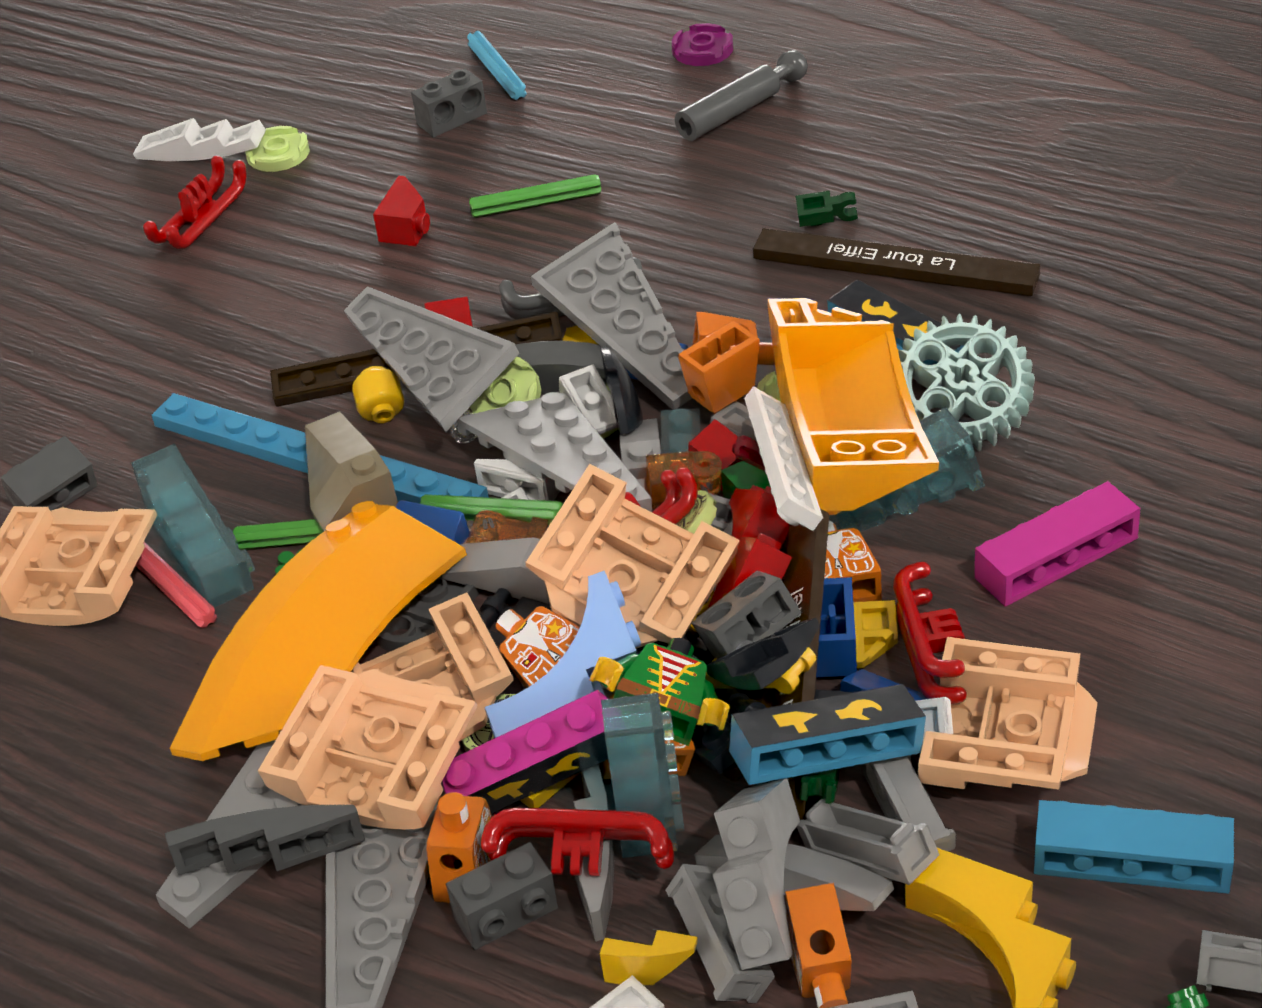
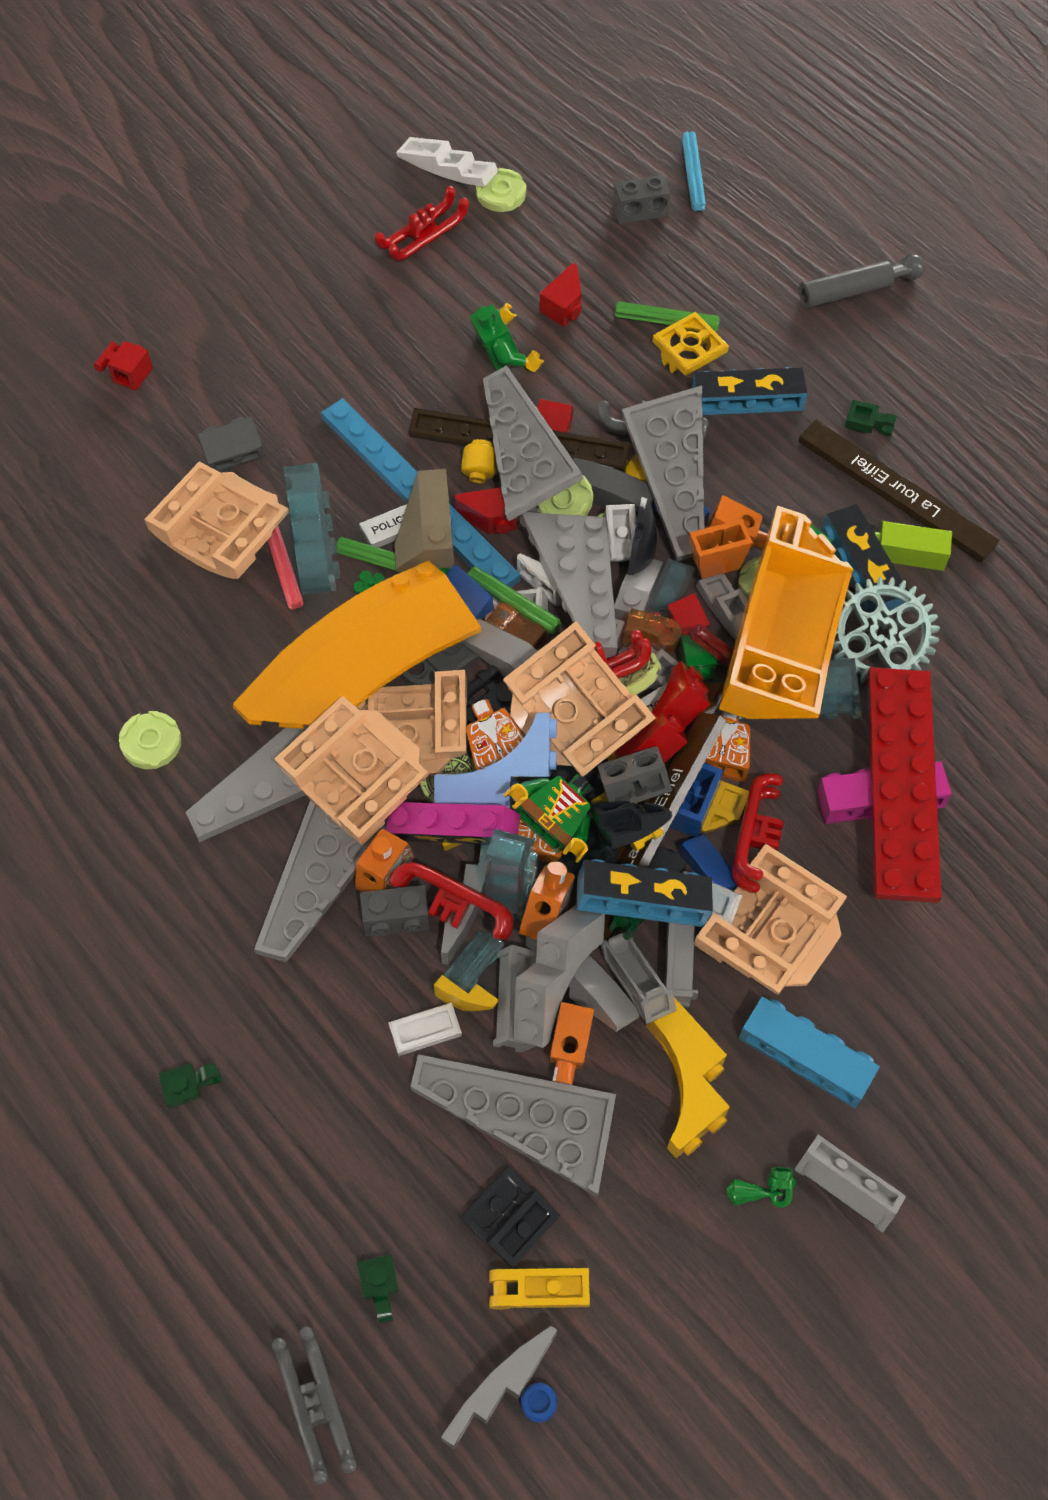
camera: 15 degrees right, 20 degrees up
(69, 835) = (150, 740): none -> yellowish green tile
(251, 837) = (274, 809): dark grey slope -> none
(286, 502) = (383, 528): none -> white tile
(340, 272) = (497, 341): none -> green torso
(412, 438) = (485, 510): none -> red slope
(595, 198) = (670, 355): none -> yellow piece
(641, 906) = (474, 960): none -> clear light blue plate
(680, 223) = (751, 390): none -> brick
(702, 45) = (856, 213): magenta tile -> none
(702, 792) = (552, 887): none -> orange torso
(783, 460) = (716, 660): white plate -> none
(949, 295) = (915, 545): none -> lime brick
(1081, 521) = (903, 786): none -> red plate

